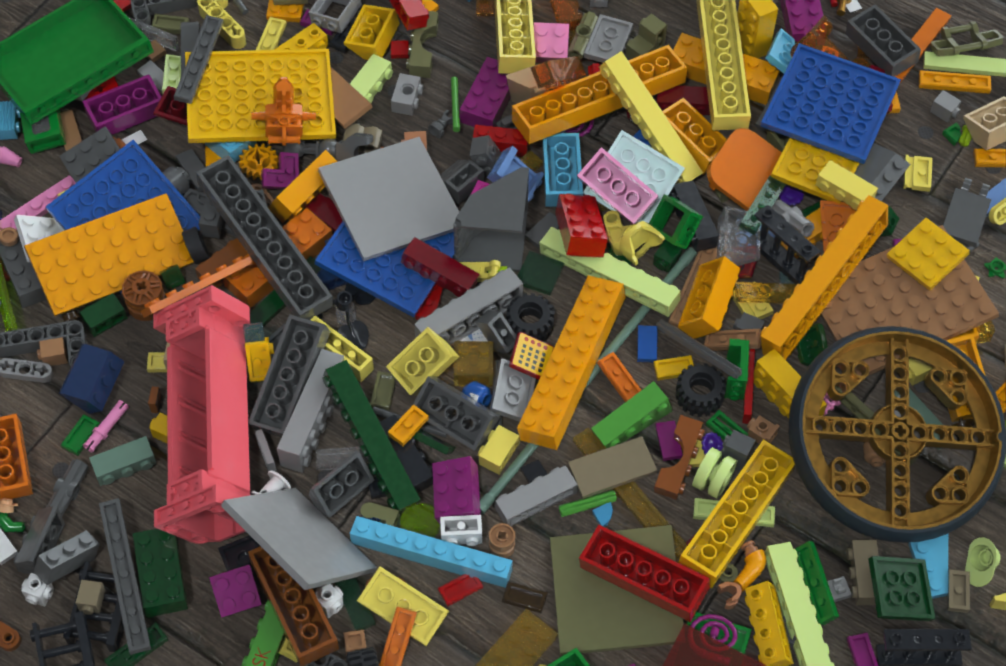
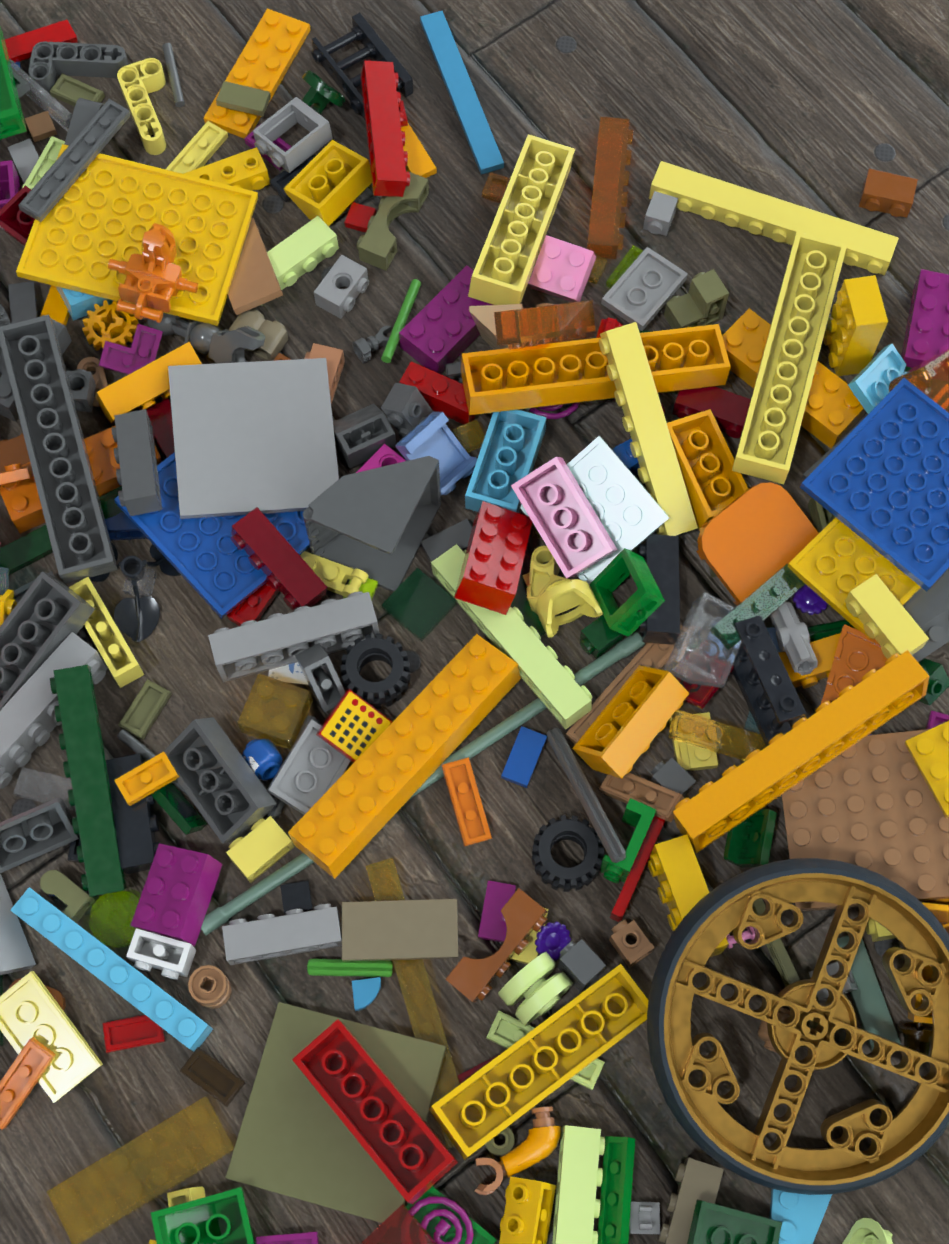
camera: 20 degrees right, 10 degrees up
(323, 232) = (137, 463): none -> dark grey brick
(422, 358) = (201, 691): light yellow slope -> none
(583, 34) = (618, 262): olive piece -> none
(633, 416) = (456, 864): bright green wedge -> none
(671, 367) = (546, 804): yellow tile -> none
(715, 428) = (572, 899): green tile -> none

